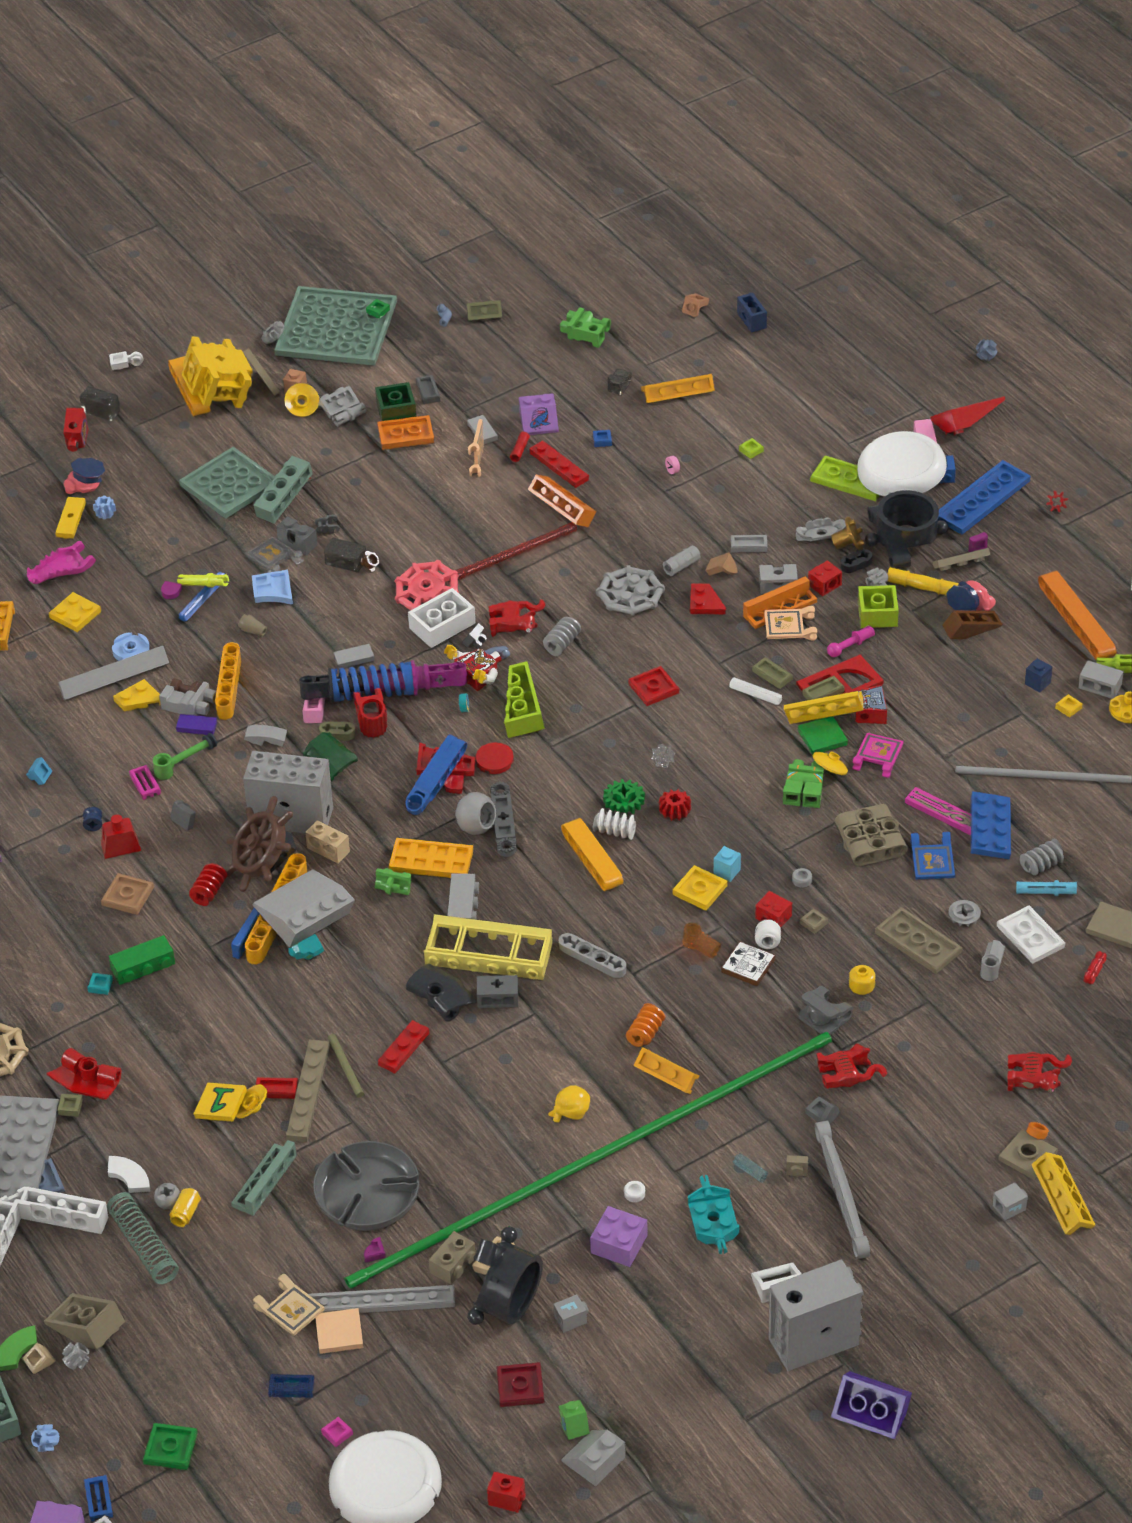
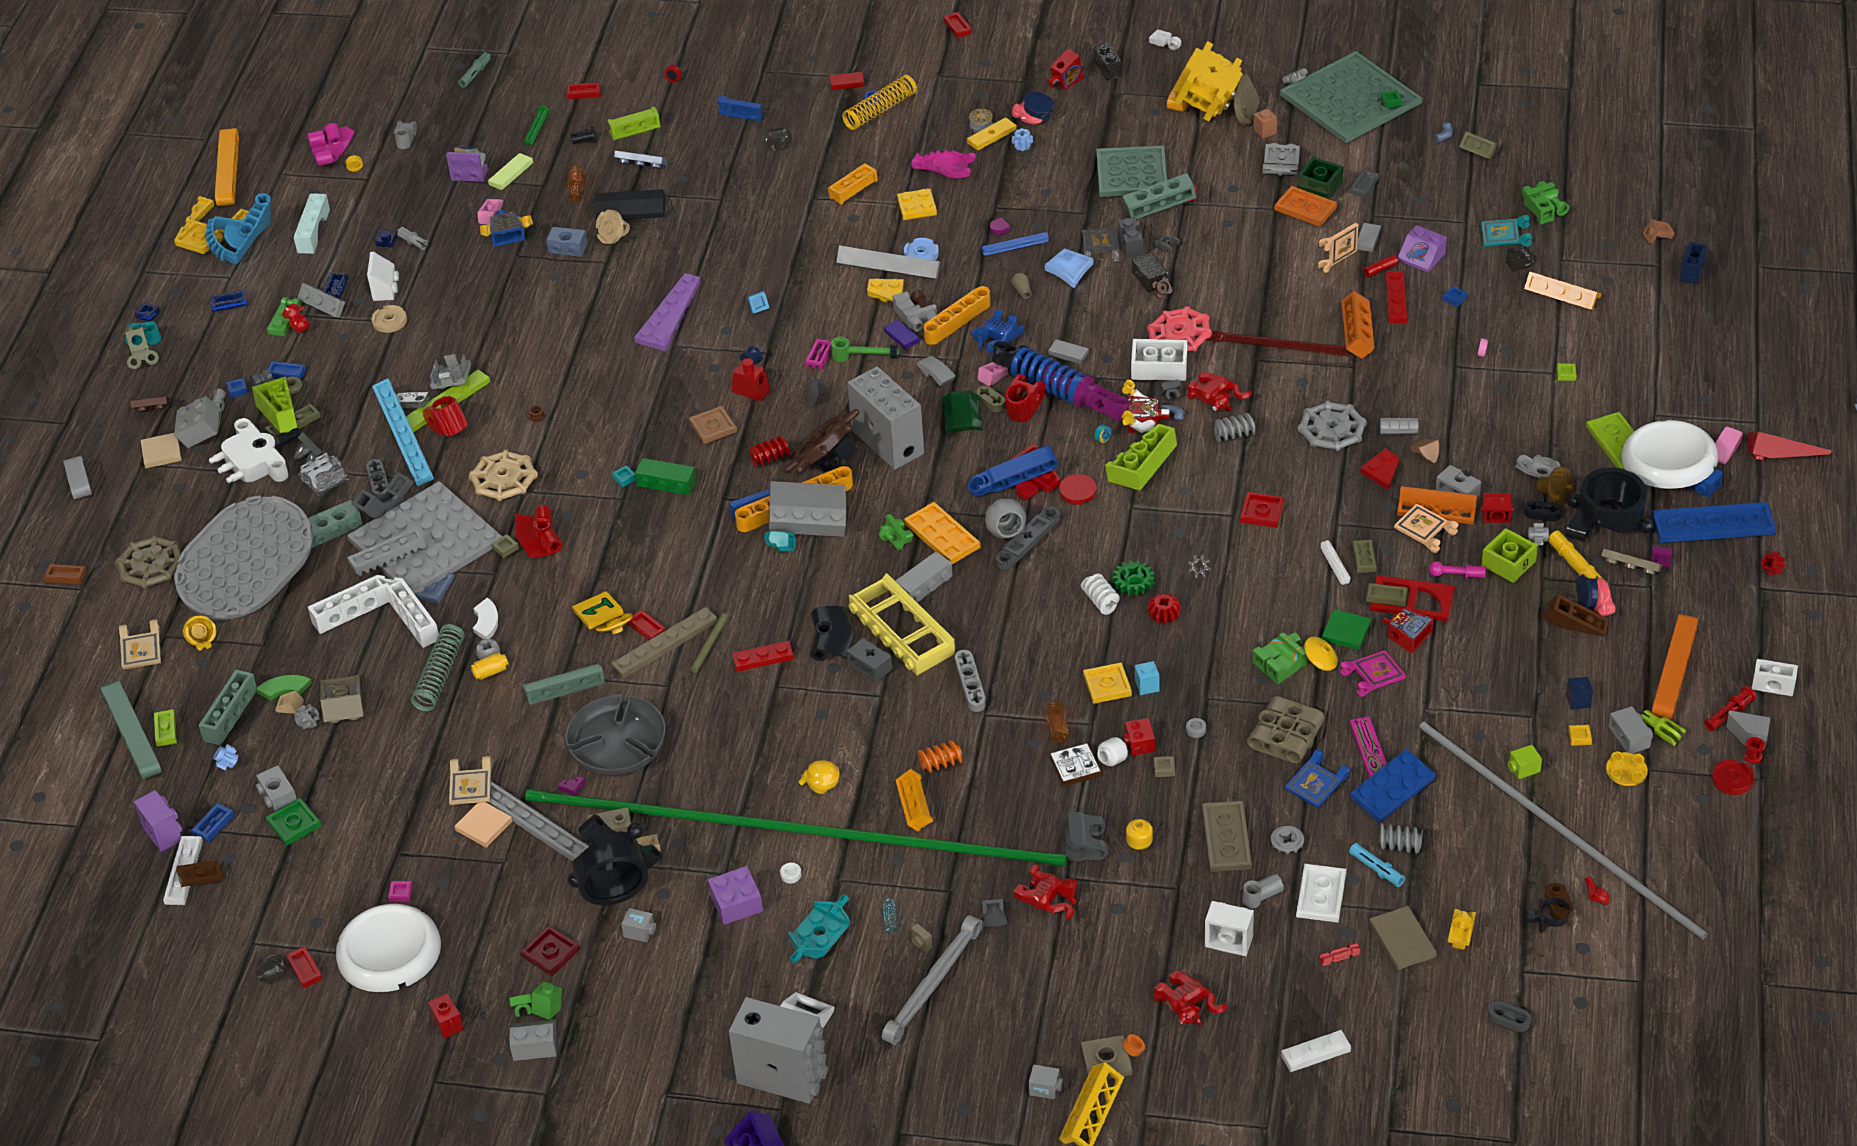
camera: 45 degrees right, 0 degrees up
(47, 511) = (980, 119): none -> light grey wheel
(136, 1427) = (275, 788): none -> light grey brick
(209, 580) = (1026, 233): neon yellow pin -> none
(279, 672) = (997, 330): none -> blue animal
(291, 1385) = (411, 838): clear blue tile -> none
(301, 392) = (1250, 133): yellow dish -> none
(327, 841) = (884, 474): tan brick -> none
(552, 1436) = (521, 1002): none -> bright green tile
(580, 368) = (1506, 232): none -> teal flag
(592, 854) = (1058, 605): light orange beam -> none
(748, 543) = (1472, 445): light grey tile -> none
(824, 707) = (1366, 606): yellow fence -> none
(1009, 1000) = (1229, 928): none -> white brick
(1059, 747) = (1524, 762): none -> lime brick

